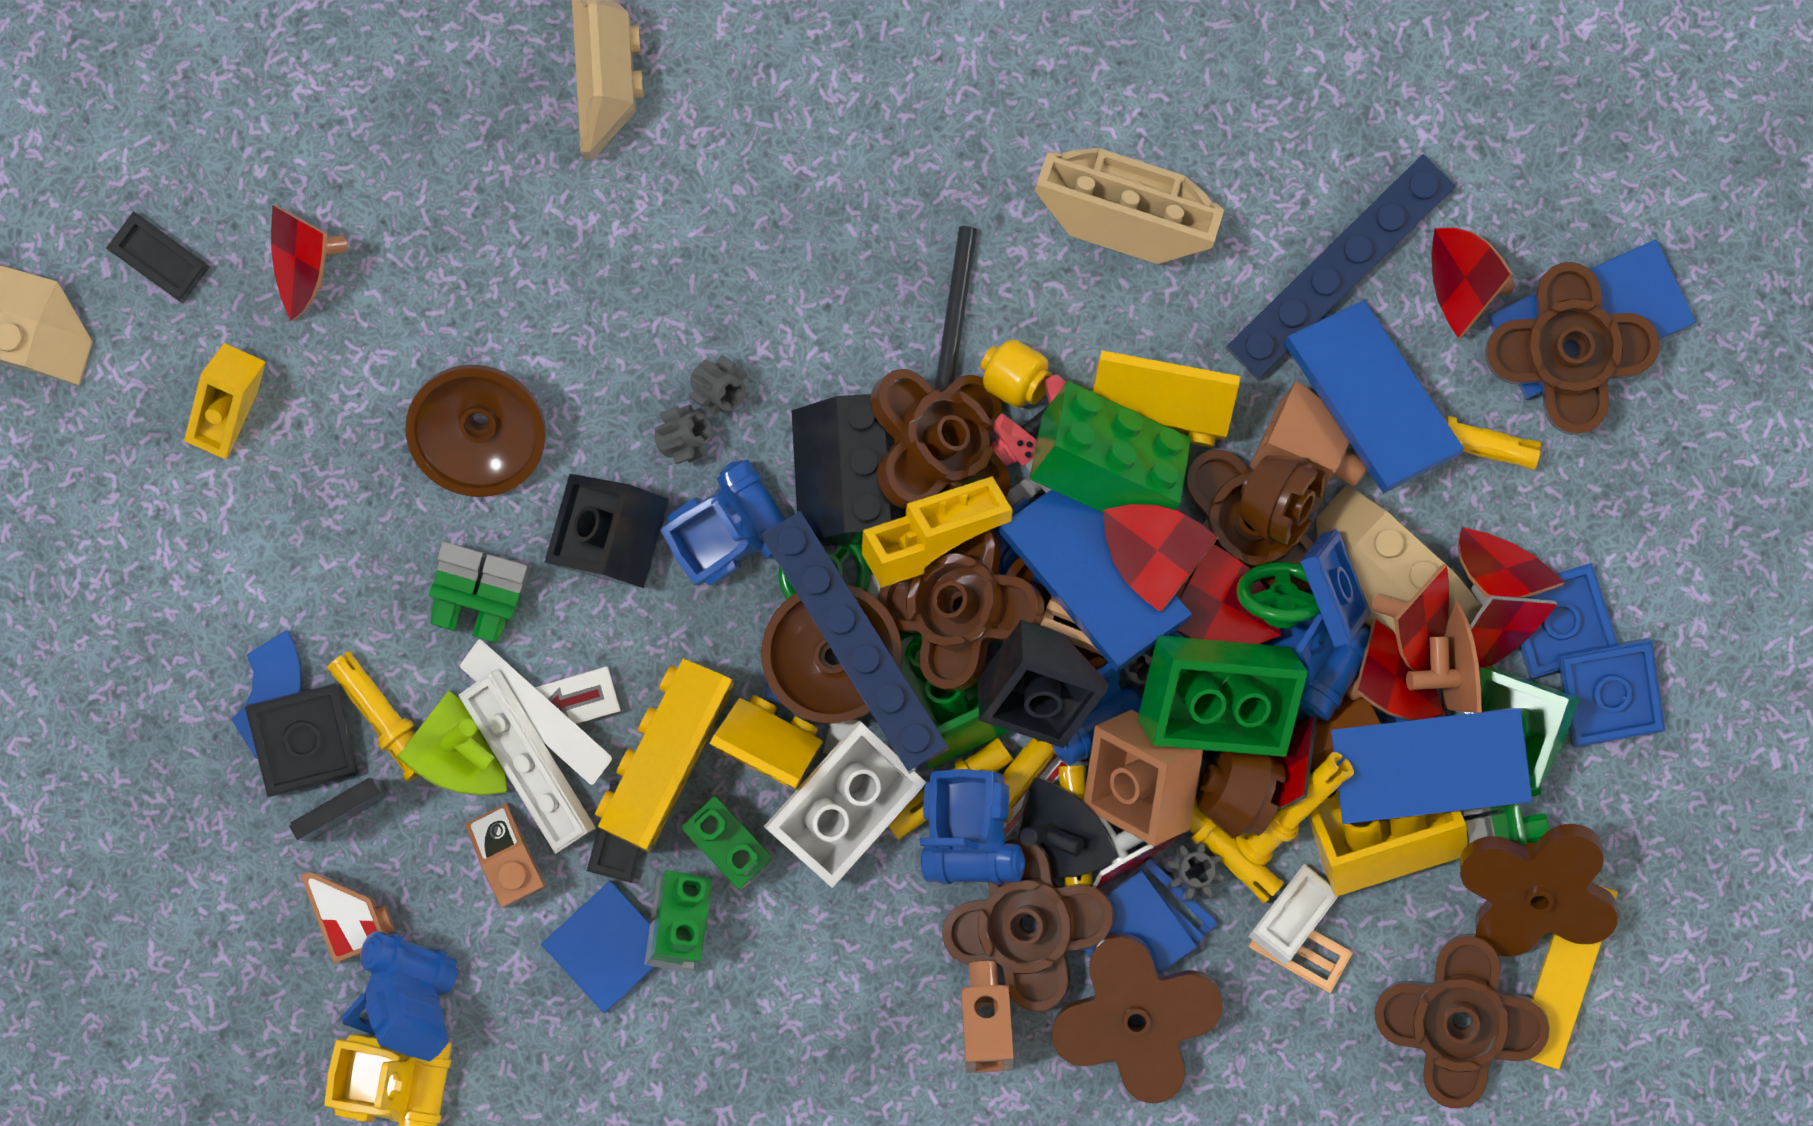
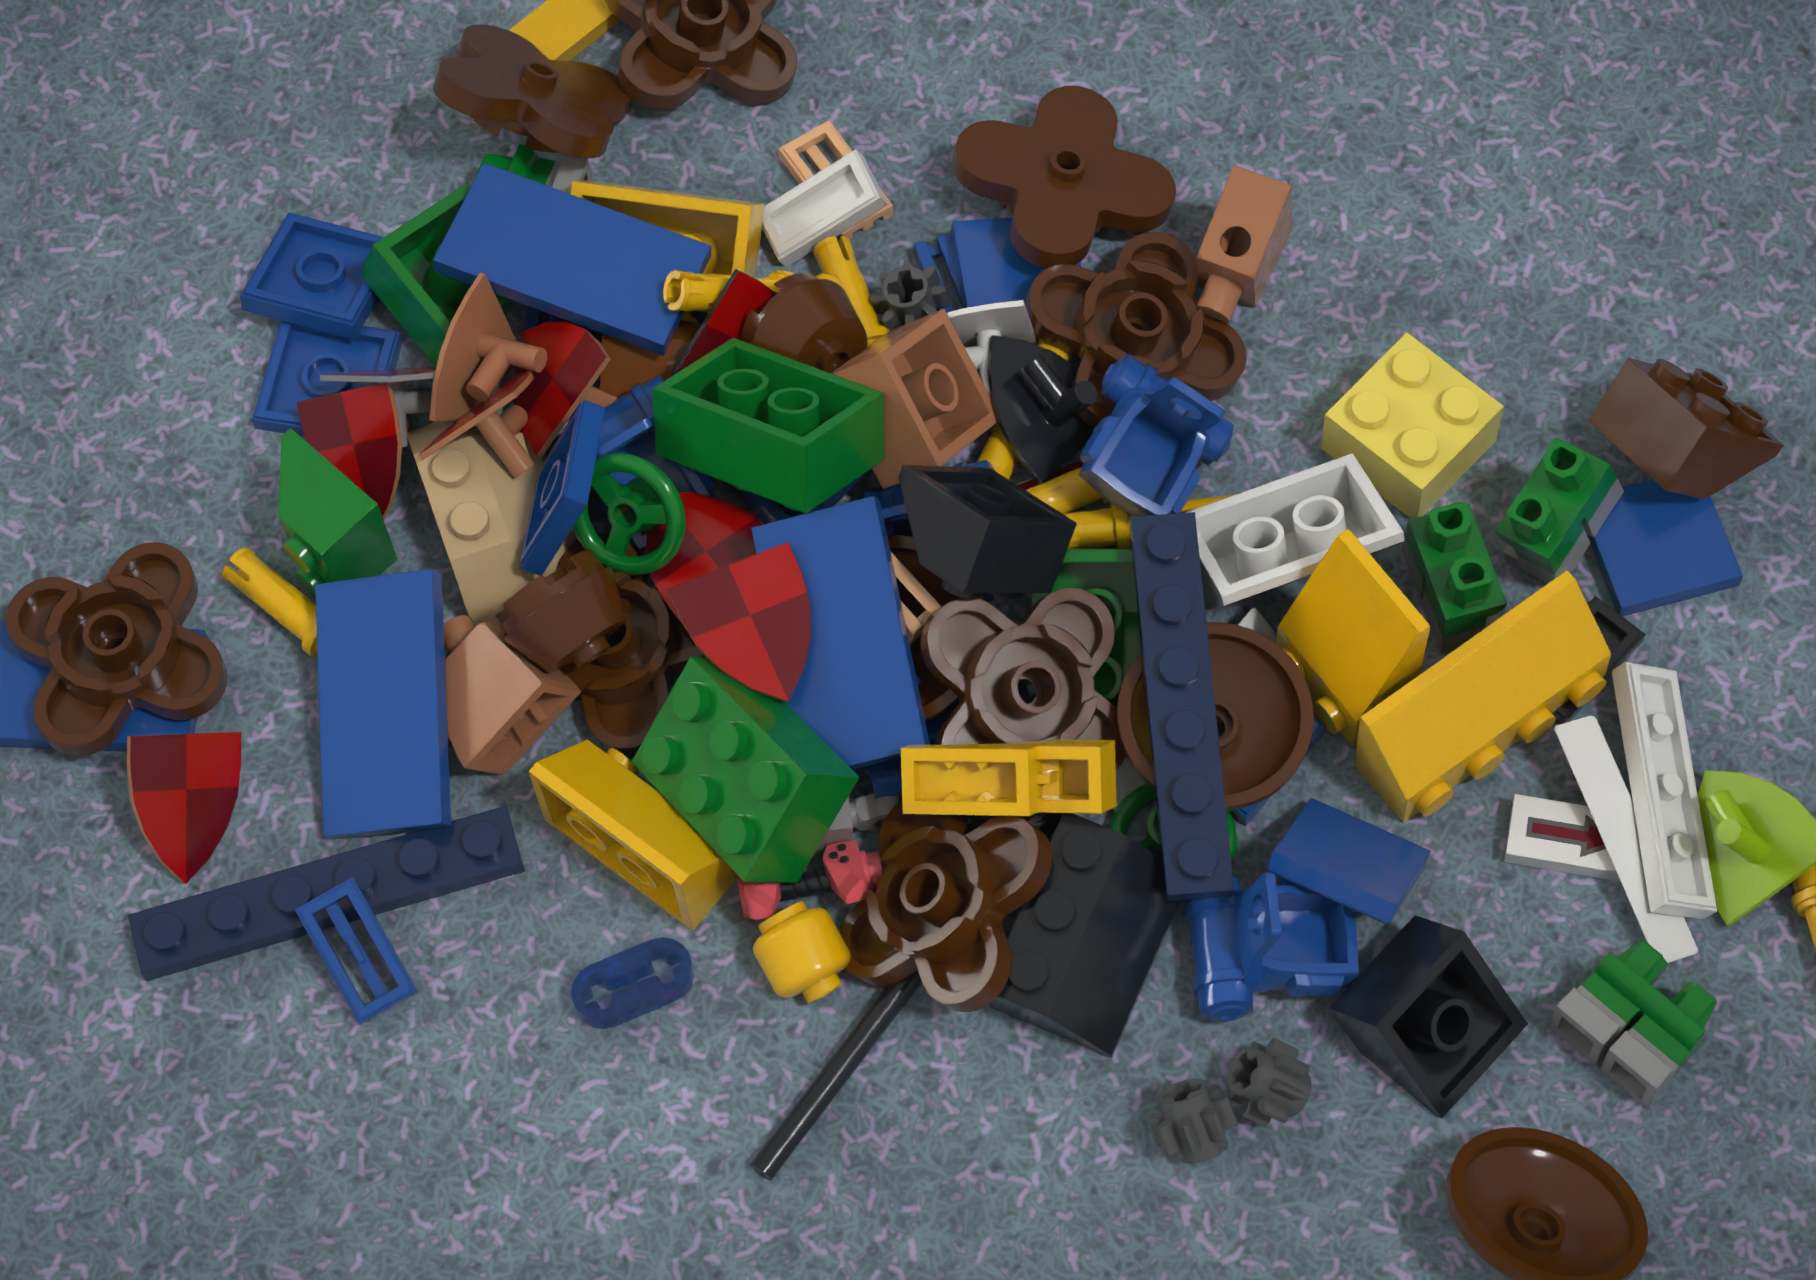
camera: 145 degrees left, 20 degrees down
(505, 856) = (1742, 688): nougat slope -> none
(623, 1028) = (1683, 427): none -> reddish brown slope
(701, 603) = (1348, 861): none -> blue tile
(806, 942) = (1412, 426): none -> light yellow brick
(1104, 298) = (626, 969): none -> clear blue beam
(1128, 205) = (535, 1083): tan wedge -> none
(1327, 252) = (384, 999): none -> blue tile
(1487, 499) = (328, 519): none -> green slope

